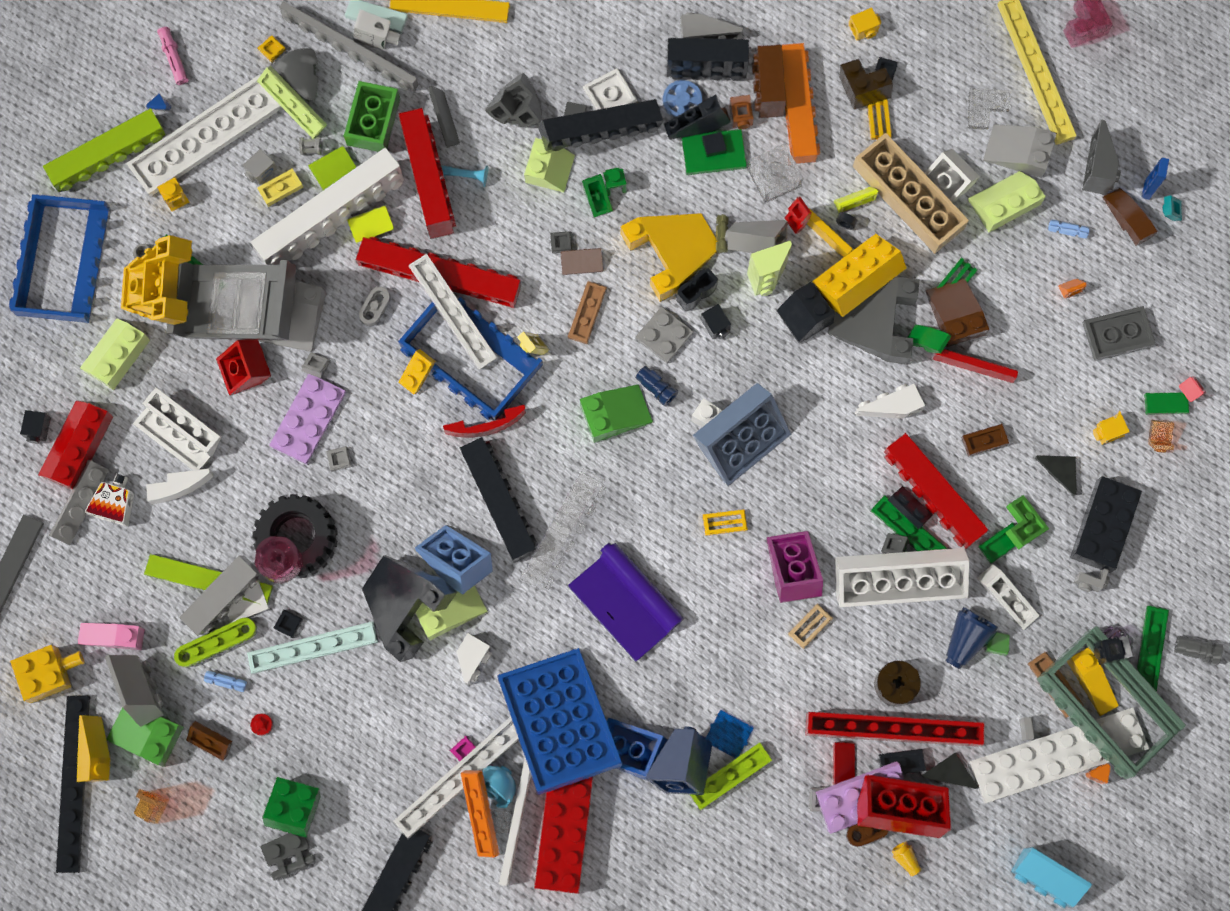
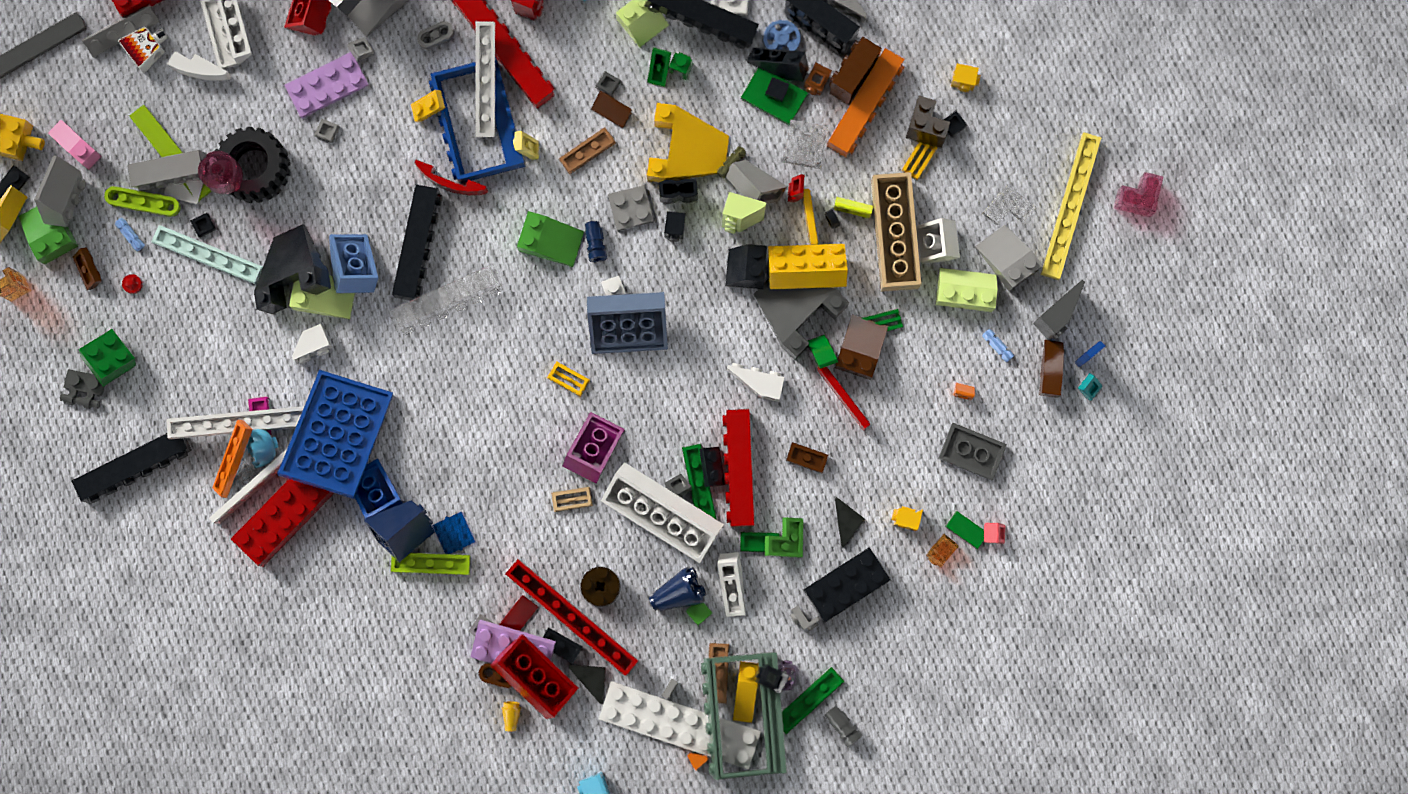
camera: 35 degrees right, 5 degrees up
(622, 590) = (457, 381): dark purple door -> none

